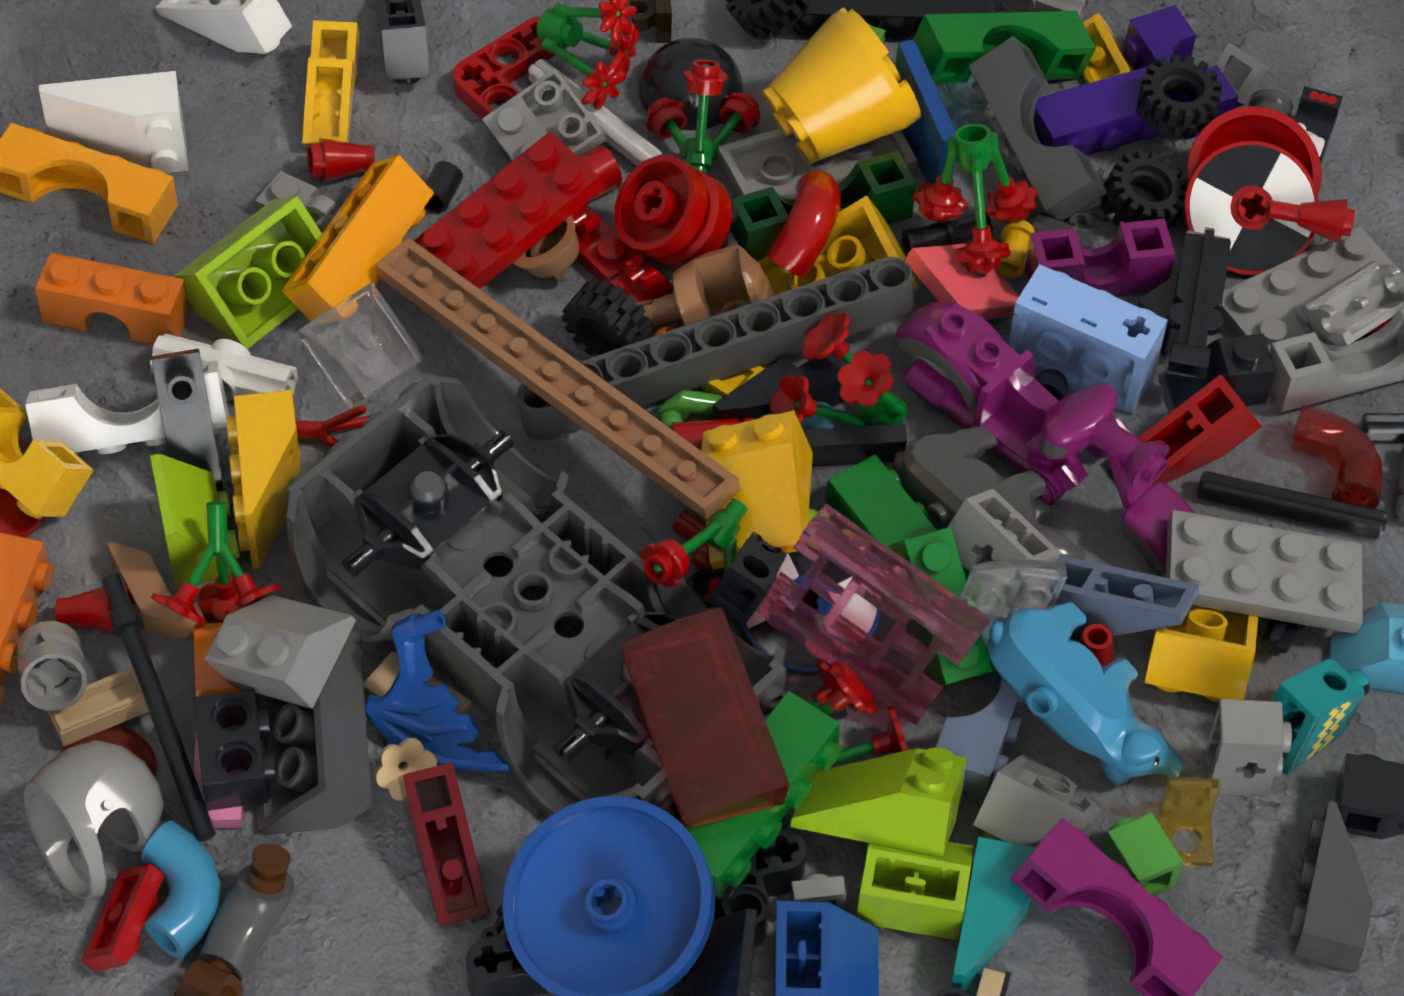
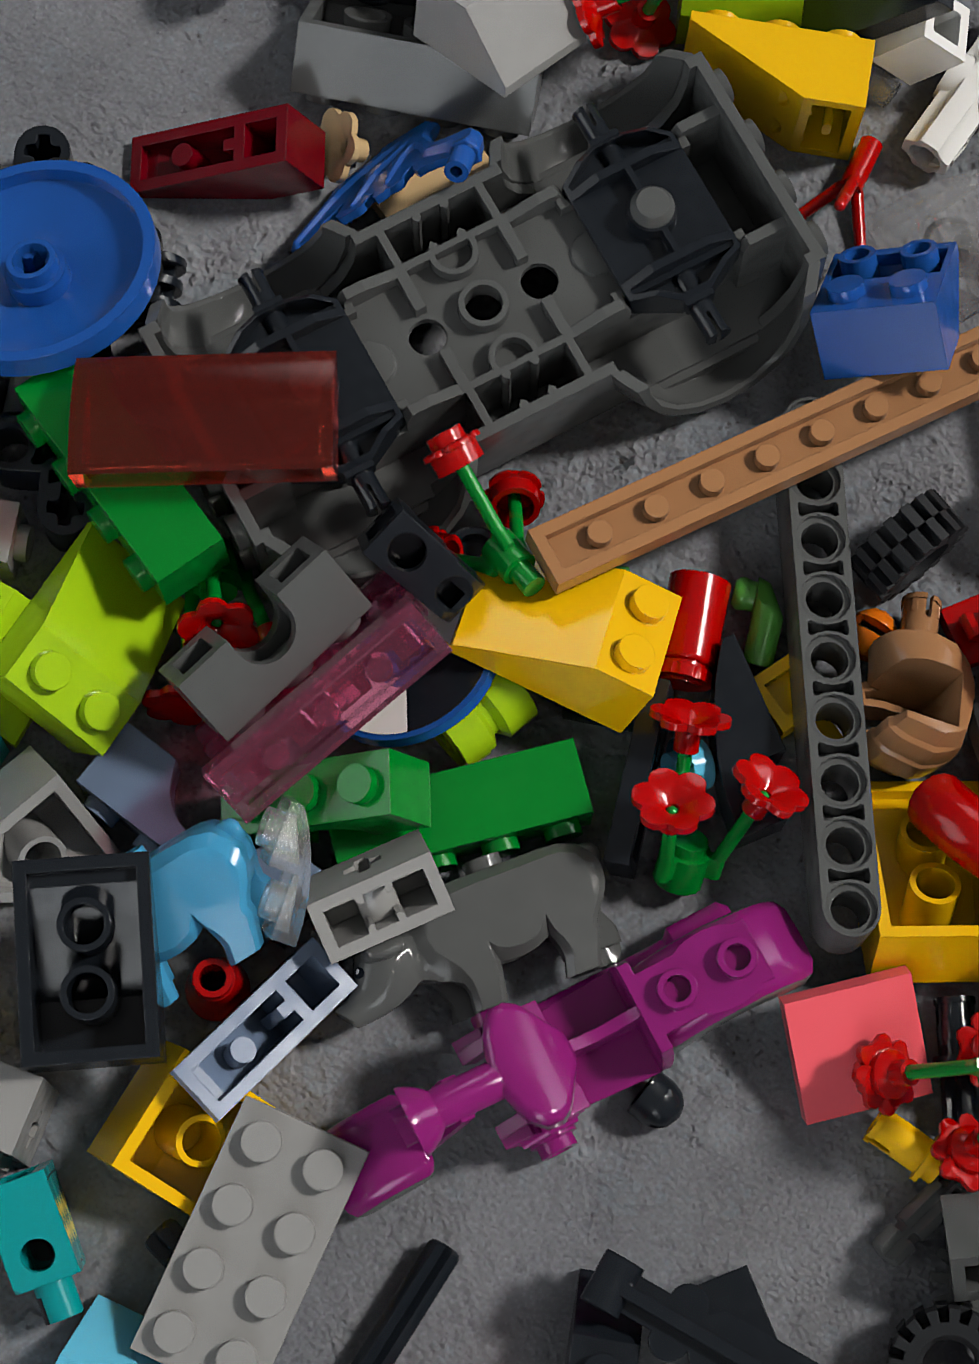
camera: 105 degrees right, 20 degrees up
(443, 338) = (888, 310): none -> blue slope
(819, 628) = (312, 609): none -> dark grey arch
(1087, 335) = (704, 1163): light blue piece -> none
(1133, 262) = (836, 1228): magenta arch -> none
(1138, 686) = (87, 963): none -> black slope
(1202, 429) = (513, 1253): red slope -> none

